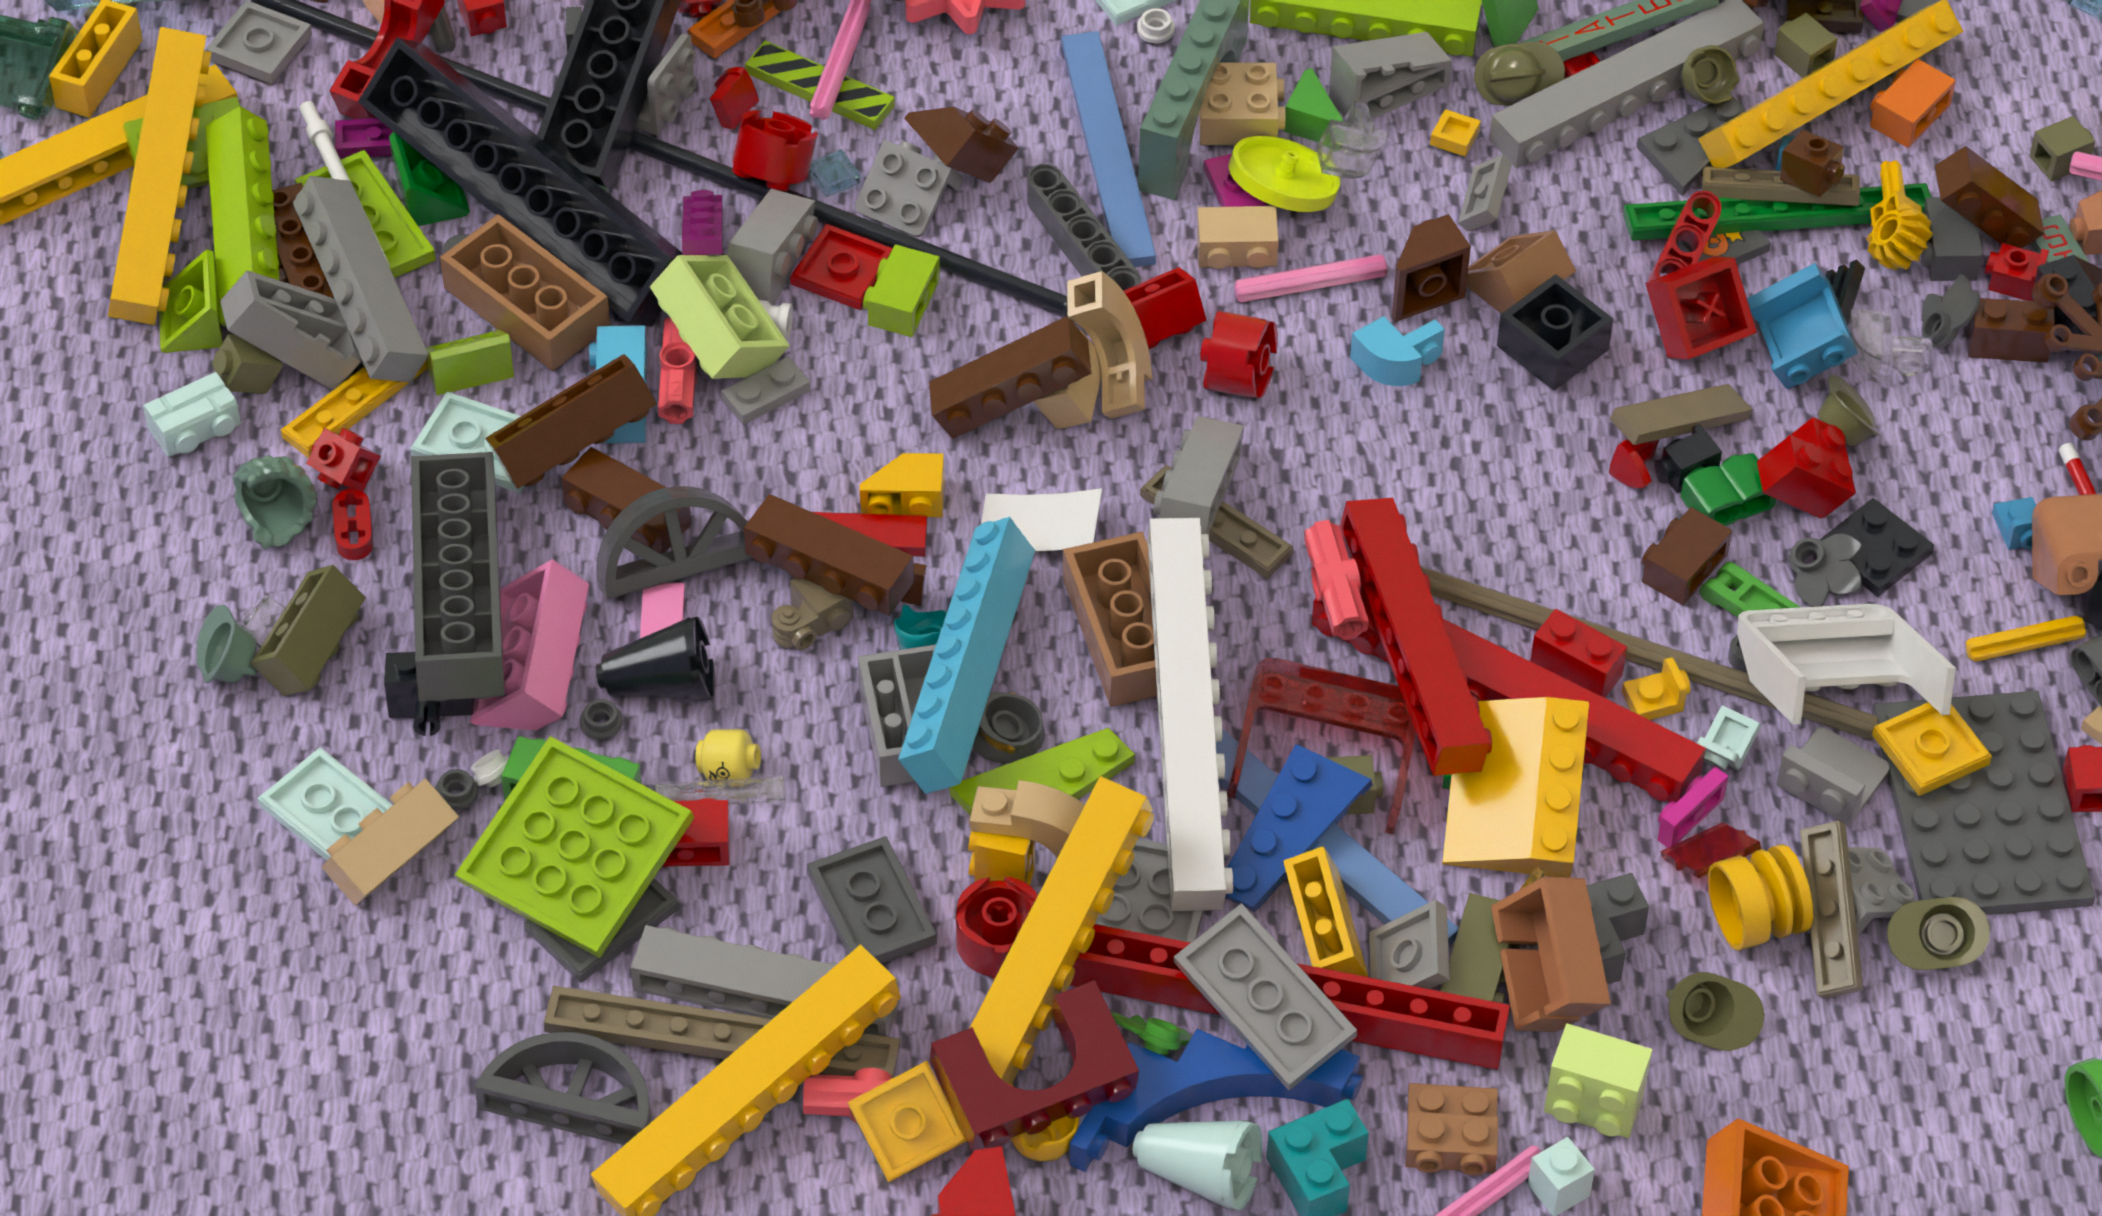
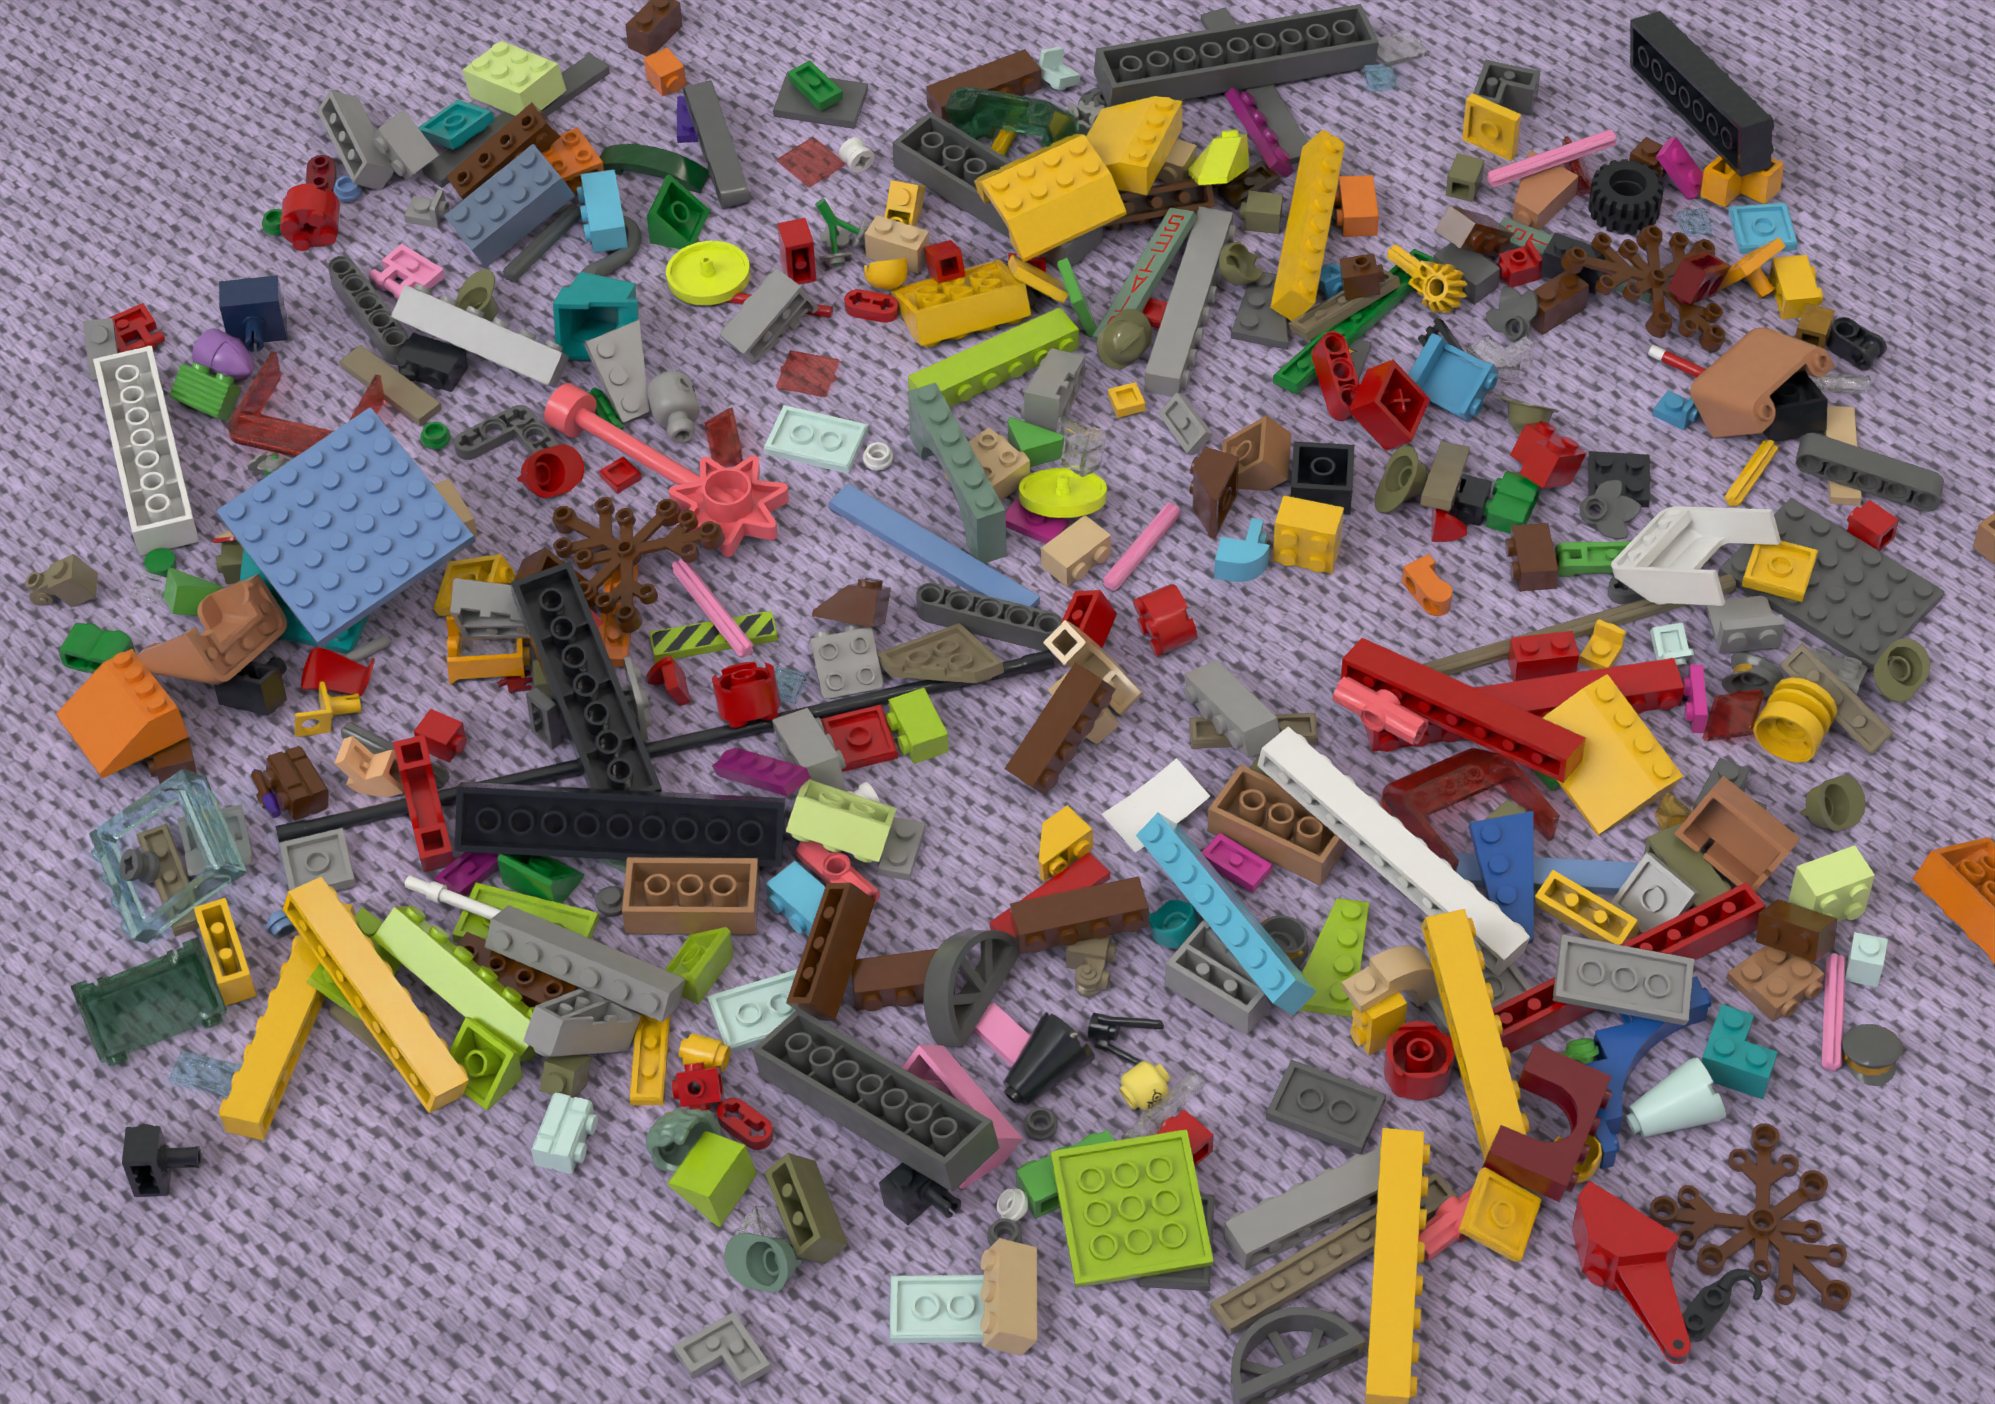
camera: 40 degrees left, 0 degrees up
(117, 693) = (726, 1343): none -> light grey plate
(264, 545) = (714, 1176): none -> lime slope
(385, 437) = (706, 1050): none -> yellow brick
(757, 683) = (1106, 1028): none -> black plant
(993, 245) = (942, 656): none -> dark tan plate
(1051, 625) = (1237, 862): none -> dark pink plate
(1471, 373) = (1307, 534): none -> yellow brick
(1513, 1091) = (1796, 930): none -> reddish brown brick
(1543, 518) = (1426, 587): none -> orange leg
(1644, 385) = (1402, 480): none -> olive piece
(1769, 822) = (1752, 673): none -> dark grey piece

